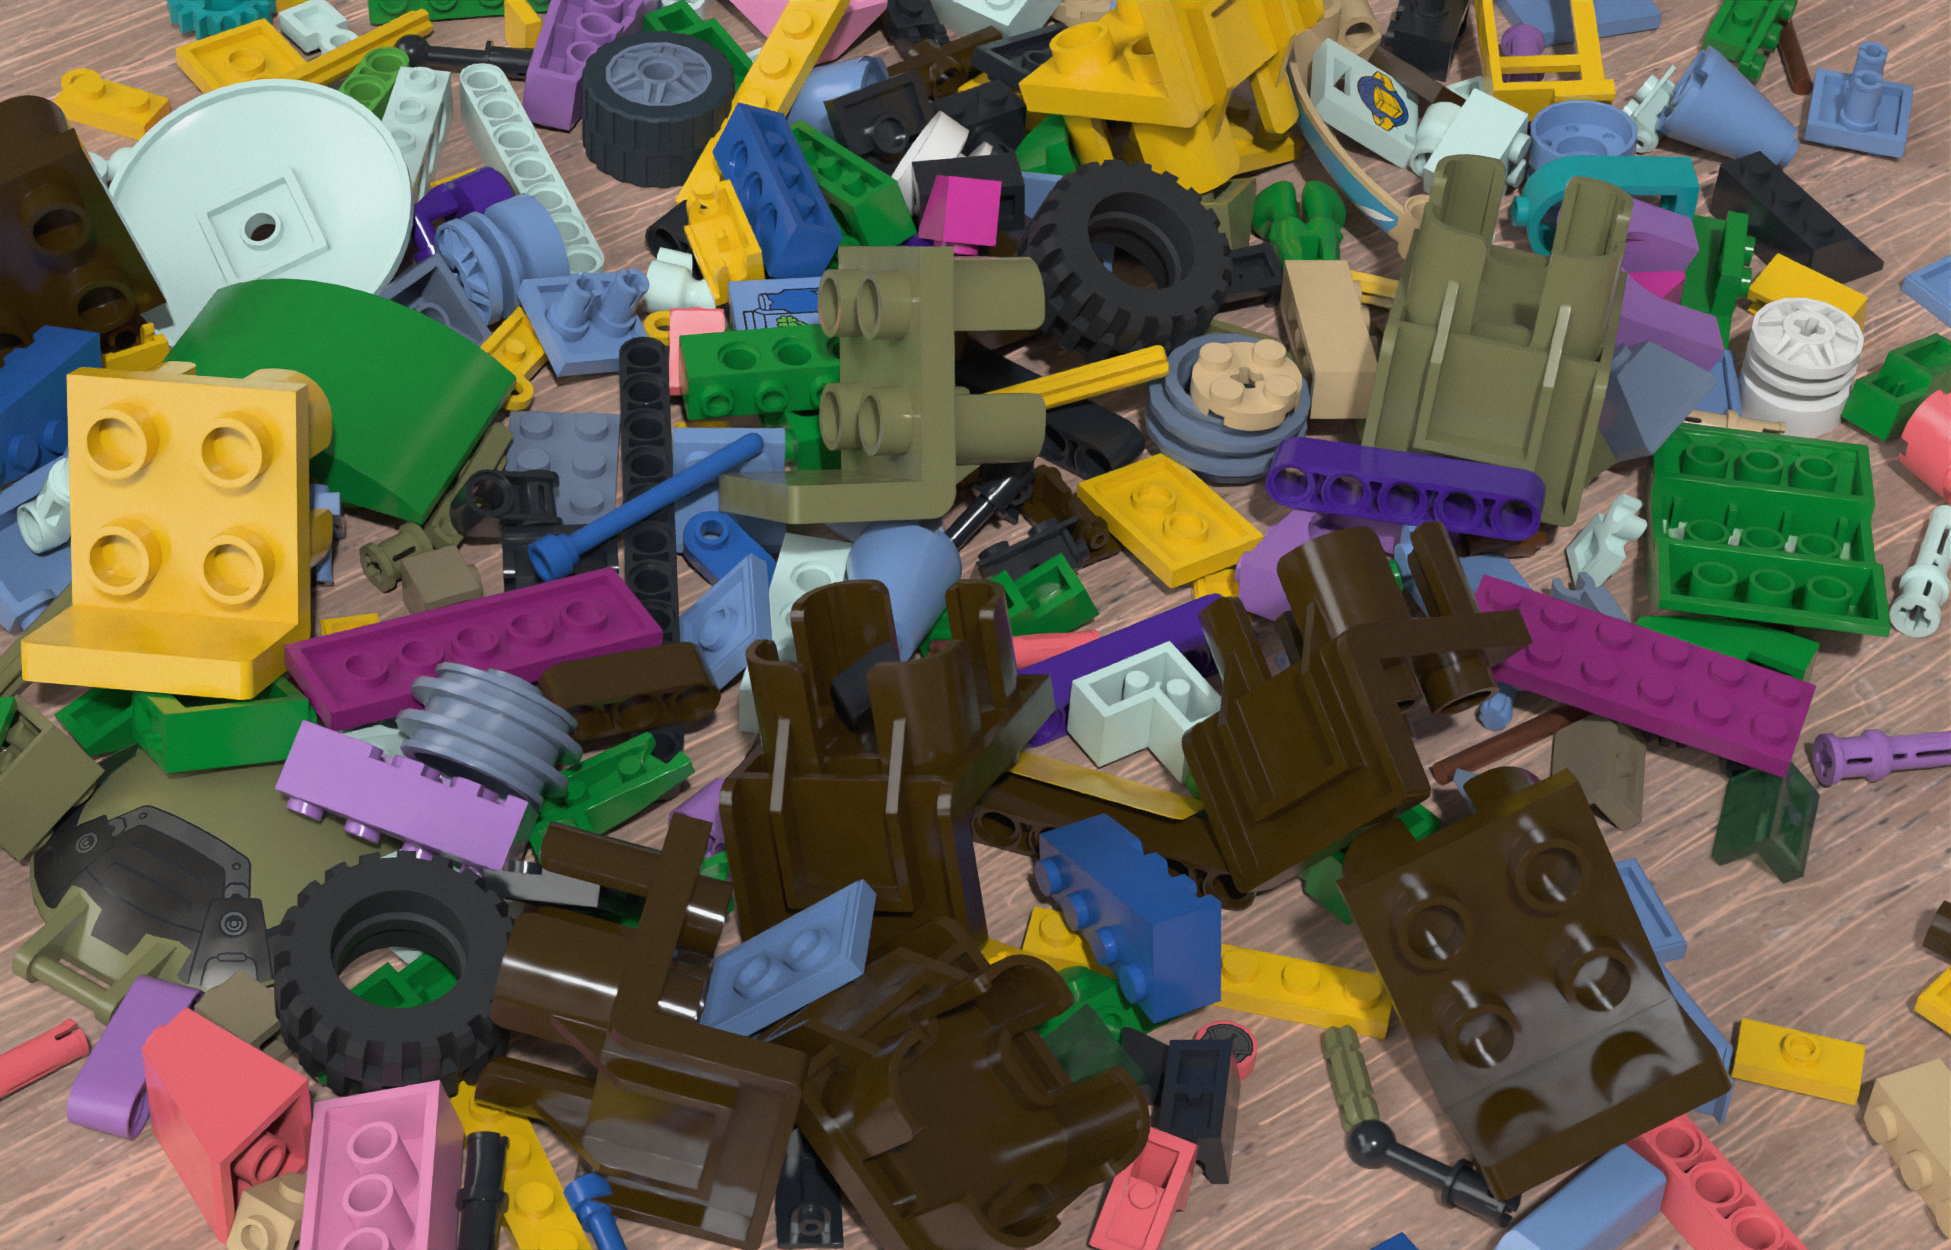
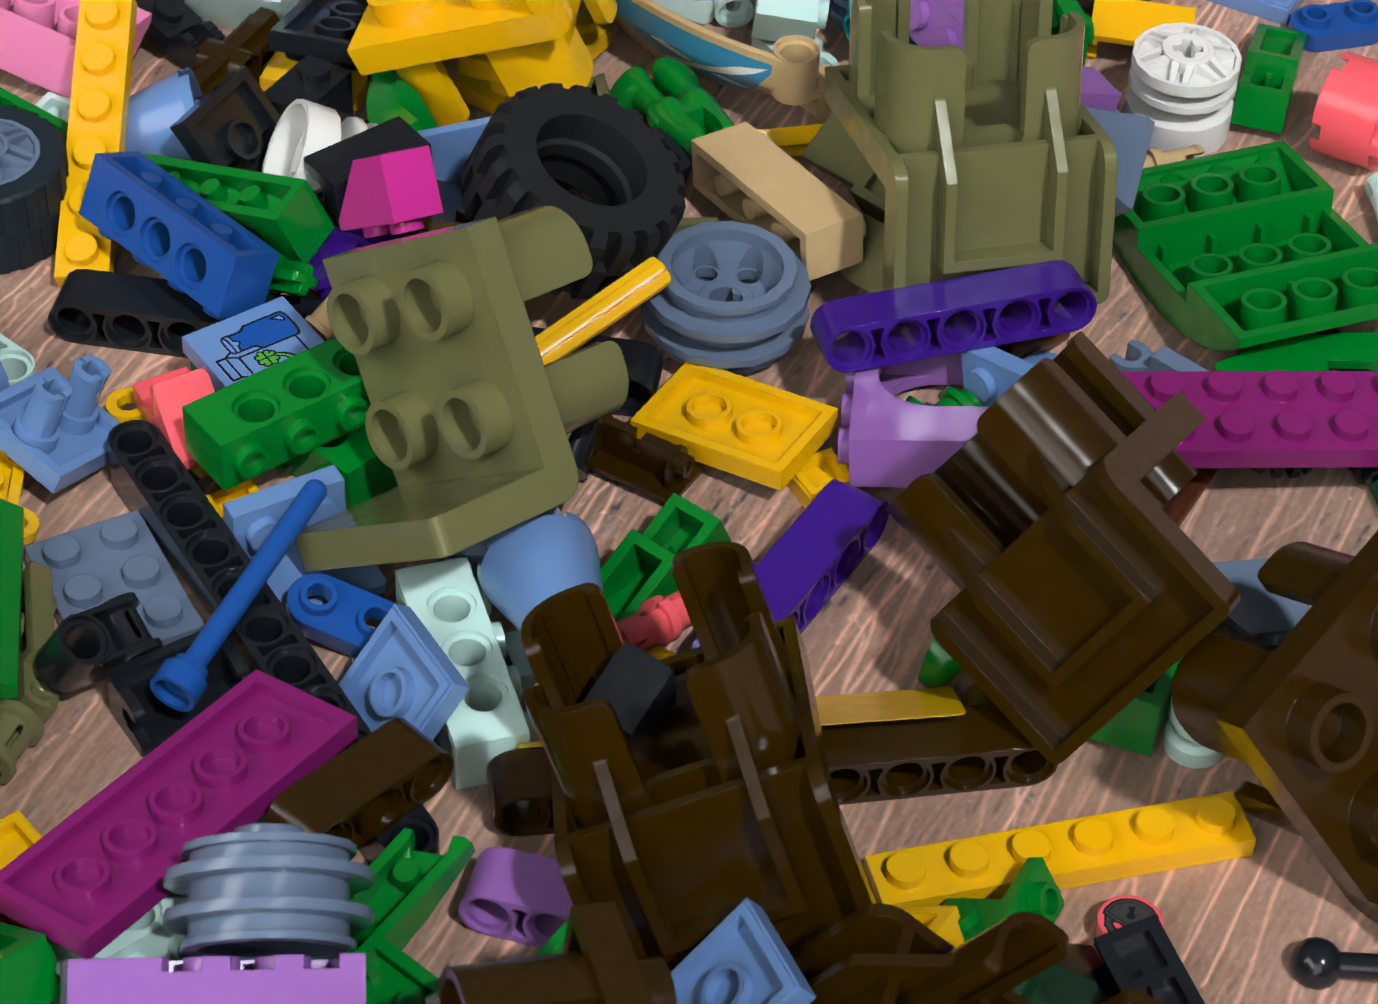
camera: 25 degrees left, 0 degrees up
(438, 580) = (72, 759): dark tan brick -> none
(674, 285) = (125, 362): light aqua piece -> none
(723, 242) = (151, 299): yellow hinge -> none
(1042, 544) = (647, 493): black hinge -> none
(1135, 915) = (994, 825): blue wedge -> none
(1141, 705) = (865, 610): light aqua brick -> none
(1225, 368) = (728, 262): tan plate -> none
(1349, 1076) = (1256, 906): olive axle -> none
(1600, 544) = (1129, 307): light aqua plate -> none
(1607, 763) = (1255, 514): dark tan panel -> none

